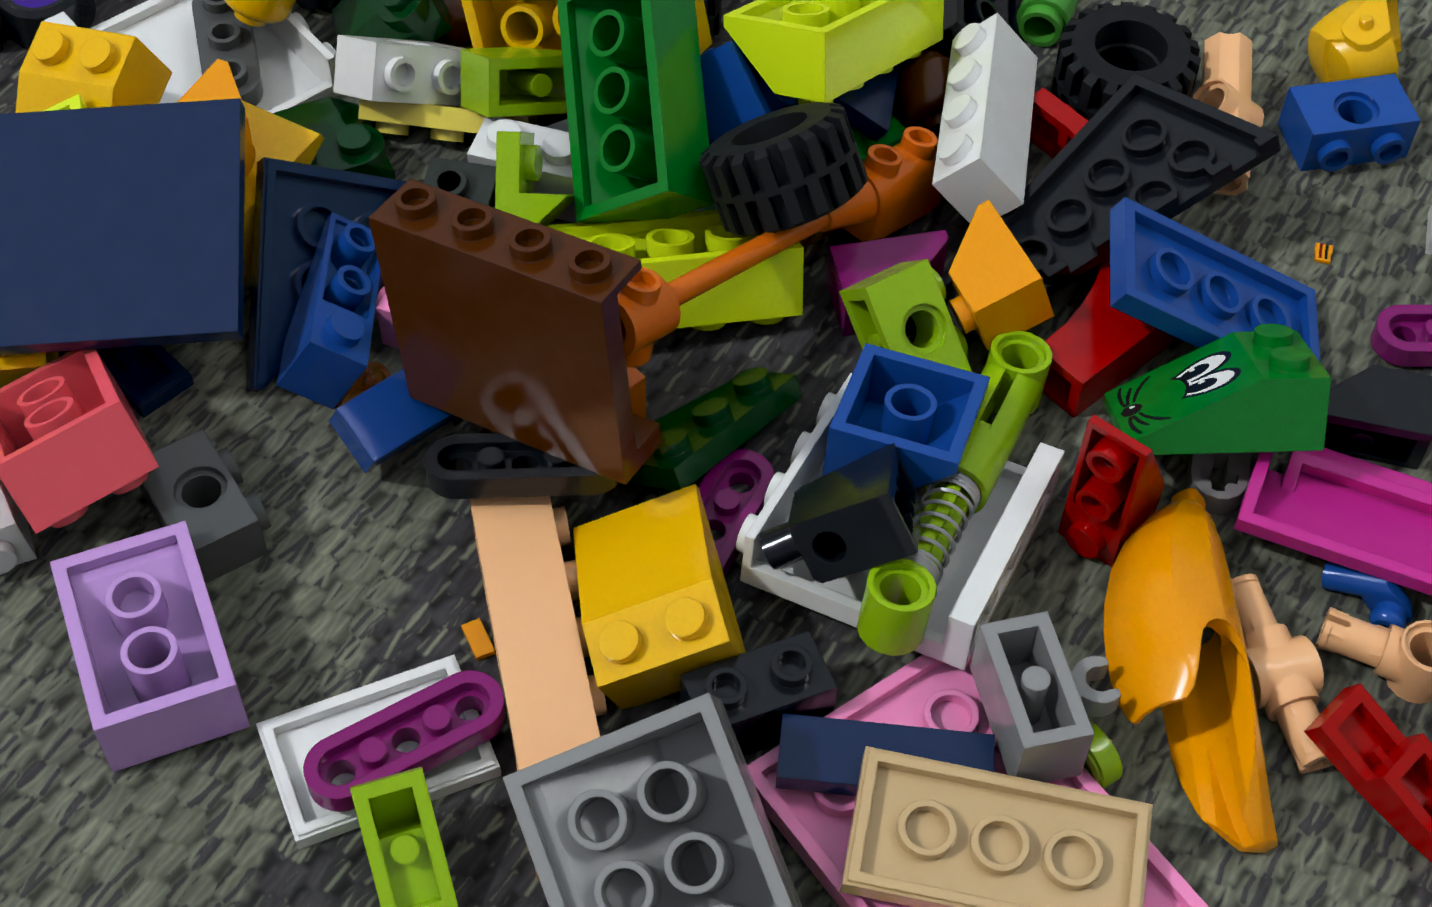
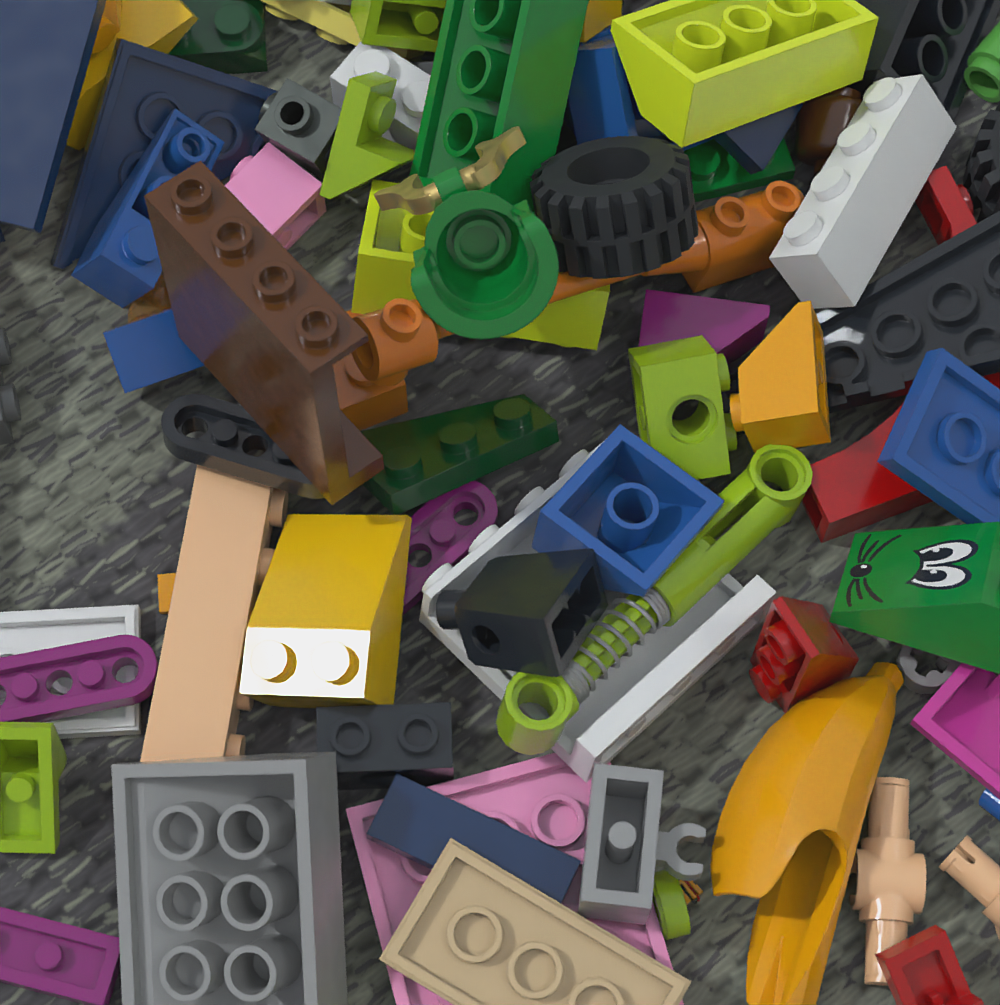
camera: 20 degrees right, 15 degrees up
(691, 219) = (483, 259): none -> green helmet

